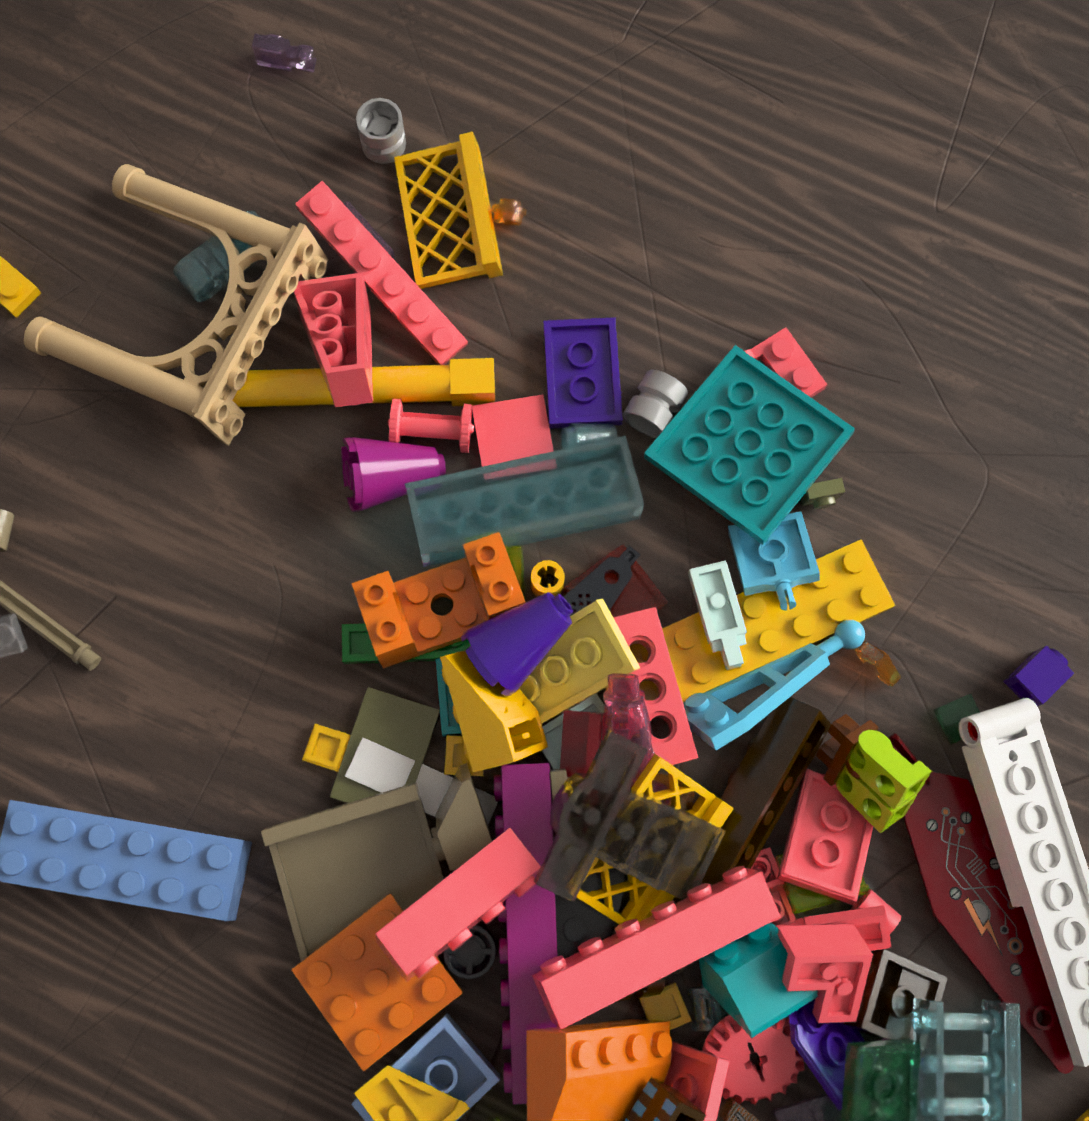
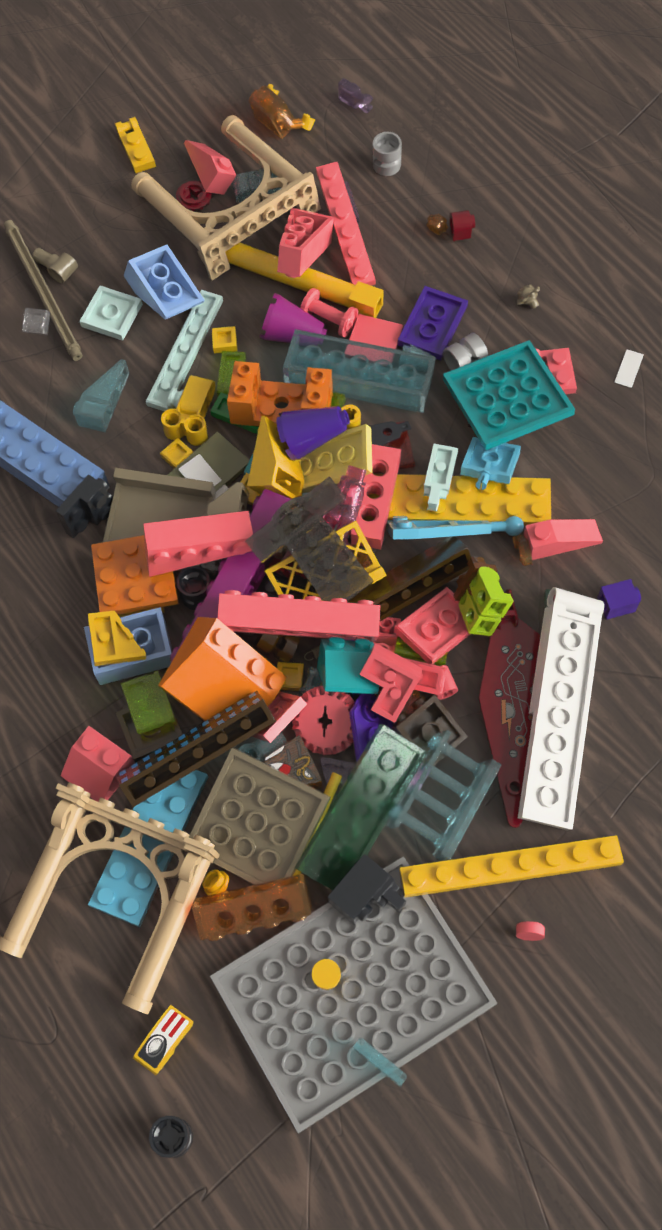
camera: 35 degrees right, 10 degrees down
(107, 569) = (111, 313): none -> light aqua plate
(127, 304) = (197, 189): none -> dark red gear
(129, 261) = (212, 167): none -> coral slope
(165, 492) = (162, 282): none -> light blue slope
(169, 722) = (101, 398): none -> clear light blue slope
(179, 131) = (274, 112): none -> clear orange torso
(248, 894) = (85, 504): none -> black plate
(249, 578) = (184, 350): none -> light aqua tile
(281, 663) = (174, 397): none -> light aqua bush
(300, 535) = (224, 339): none -> yellow plate
(312, 671) = (190, 412): none -> yellow piece
(334, 581) = (226, 369): none -> clear neon green tile
(474, 198) = (421, 210): yellow fence -> none
(545, 200) = (461, 224): none -> dark red plate
(692, 271) = (528, 296): none -> dark tan plant
(823, 493) = (539, 443): olive plate -> none
(876, 319) = (629, 368): none -> white sticker
(921, 619) = (561, 536): none -> coral slope

